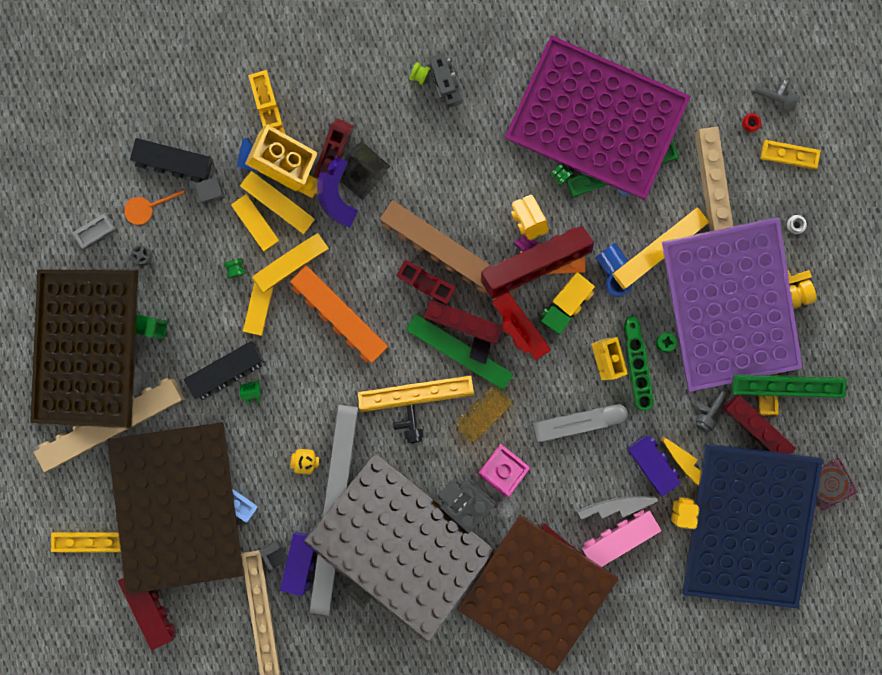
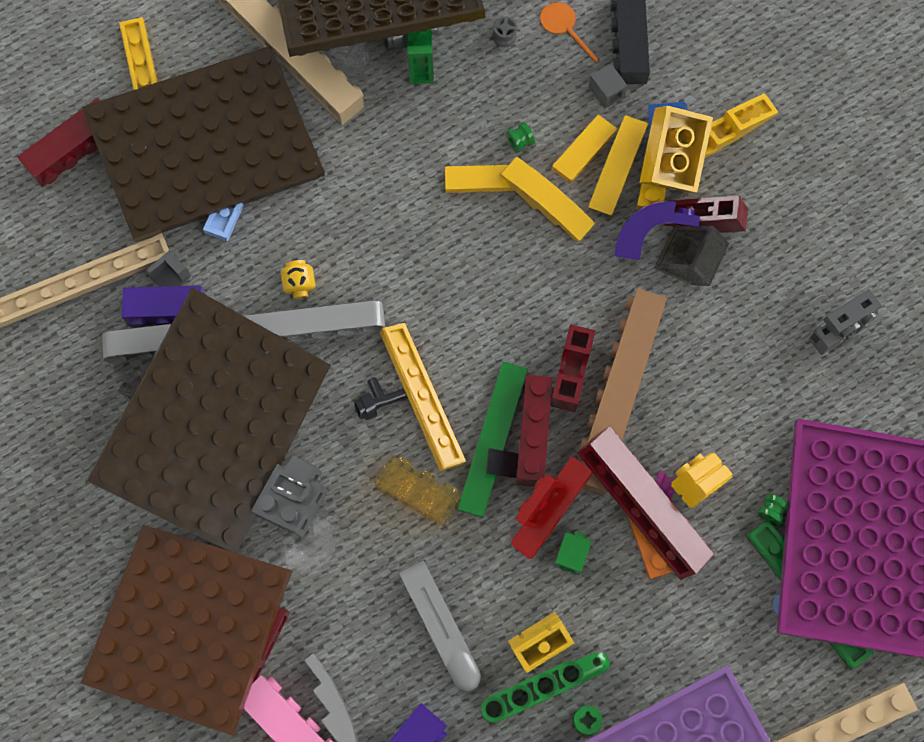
camera: 80 degrees right, 15 degrees down
(224, 370) = (390, 157): black brick -> none
(250, 391) = (371, 192): green tile -> none
(339, 314) = (498, 274): orange brick -> none
(419, 73) = (840, 292): lime wheel -> none
(504, 471) = (347, 538): dark pink tile -> none
(573, 295) = (614, 569): yellow brick -> none
(611, 259) = (680, 609): blue piece -> none
(613, 287) = (648, 627): blue piece -> none
(654, 252) = (704, 661): yellow tile -> none

